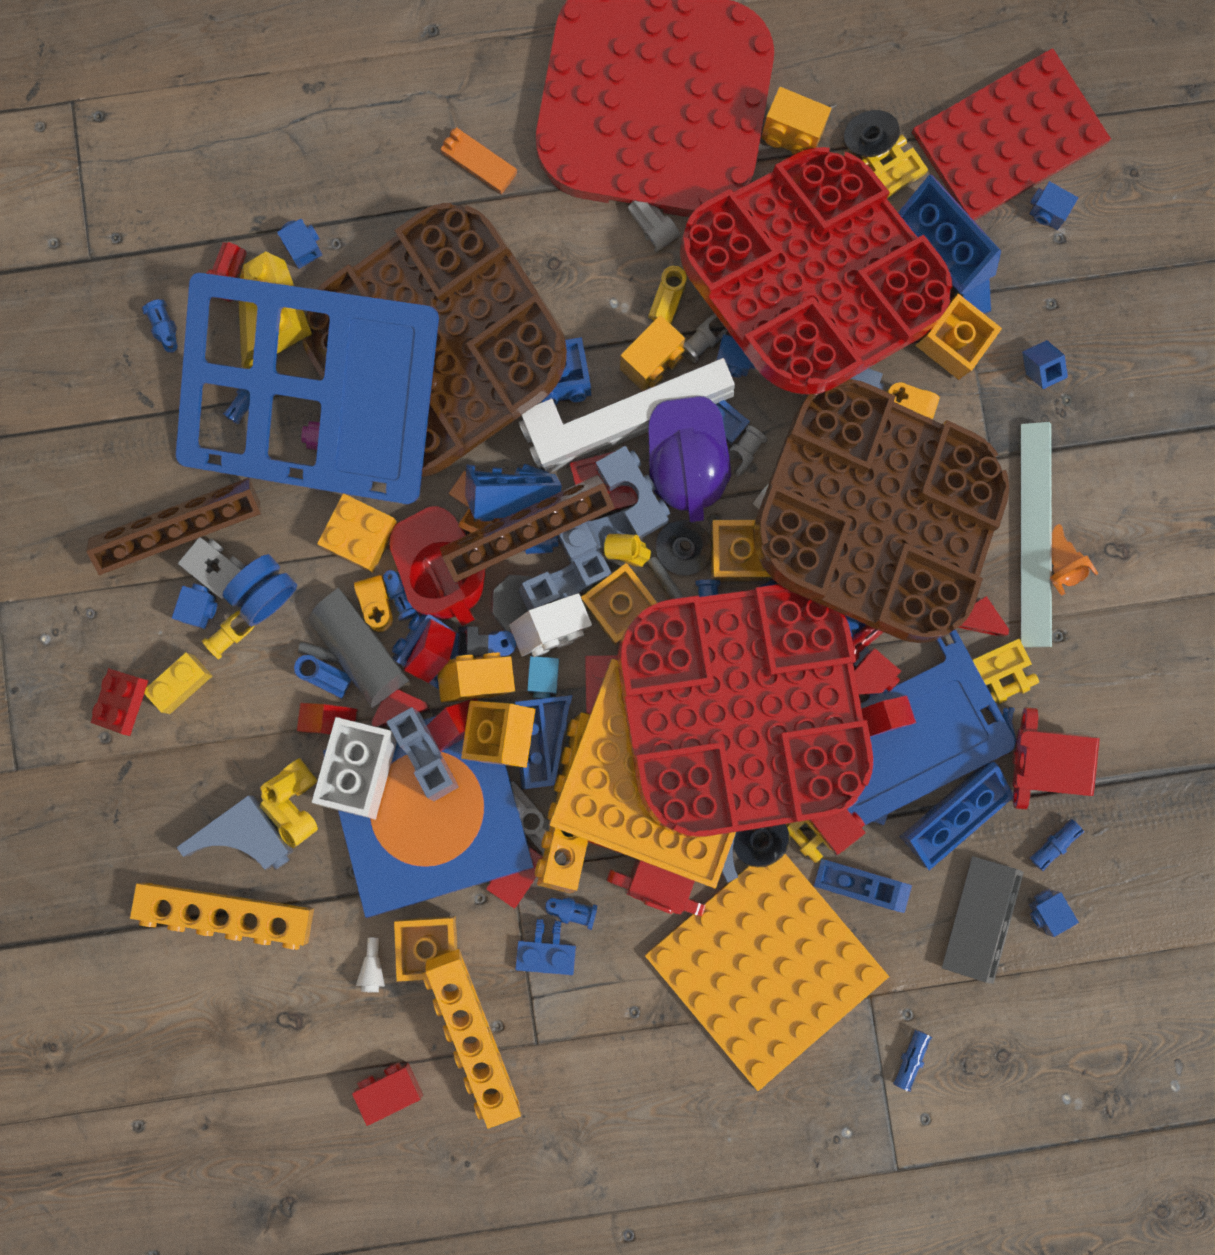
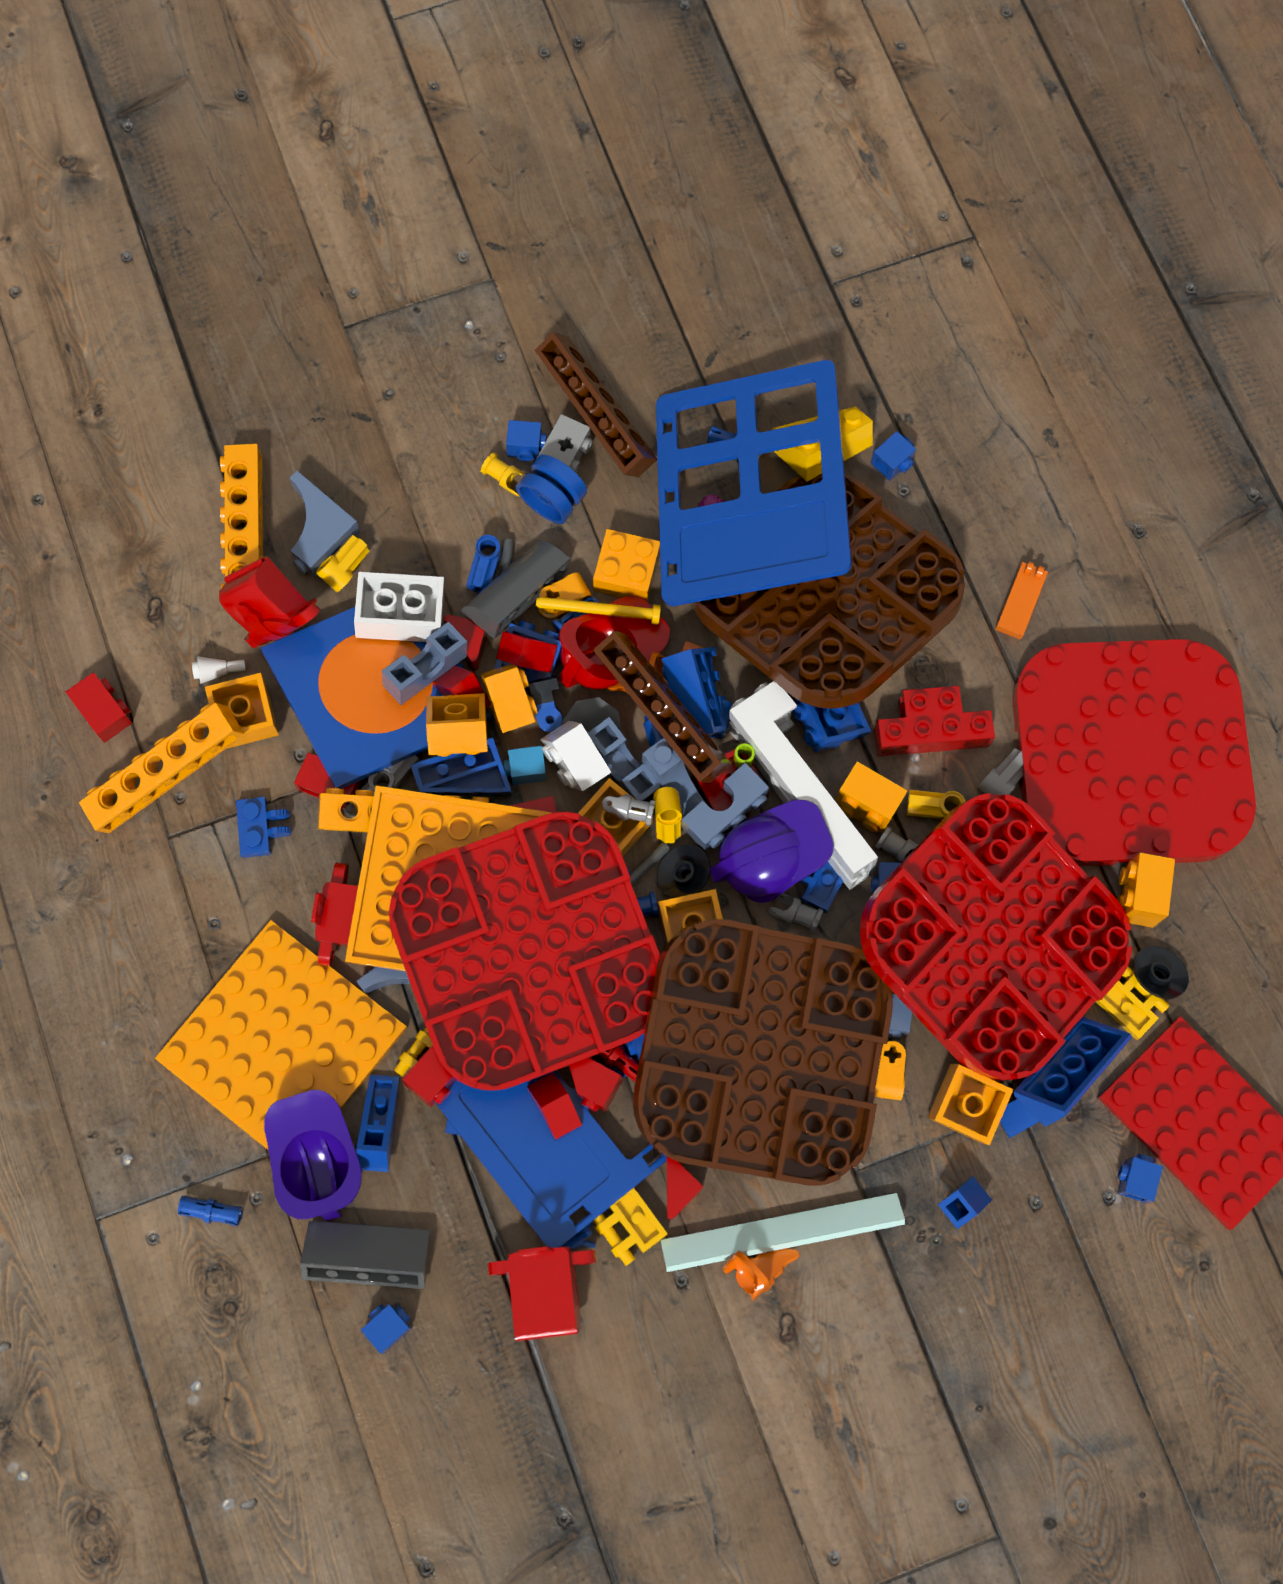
camera: 80 degrees right, 10 degrees down
(119, 701) = (422, 393): red plate -> none
(162, 330) = (782, 356): blue piece -> none
(177, 683) = (450, 440): yellow brick -> none
(228, 262) = (854, 396): red piece -> none
(291, 781) = (376, 555): yellow piece -> none
(321, 717) = (446, 566): red slope -> none
(323, 902) = (265, 602): none -> red piece
(417, 518) = (600, 608): none -> yellow bar
(566, 909) = (302, 835): blue piece -> none
(585, 455) = (743, 749): none -> lime hinge
(586, 277) = (933, 723): none -> red piece
(619, 584) = (623, 808): none -> light grey piece
(748, 844) = (400, 1009): black dish -> none
(890, 954) = (311, 1156): none -> dark purple piece
(958, 815) = (468, 1207): blue slope -> none
(1056, 845) = (459, 1319): blue pin -> none

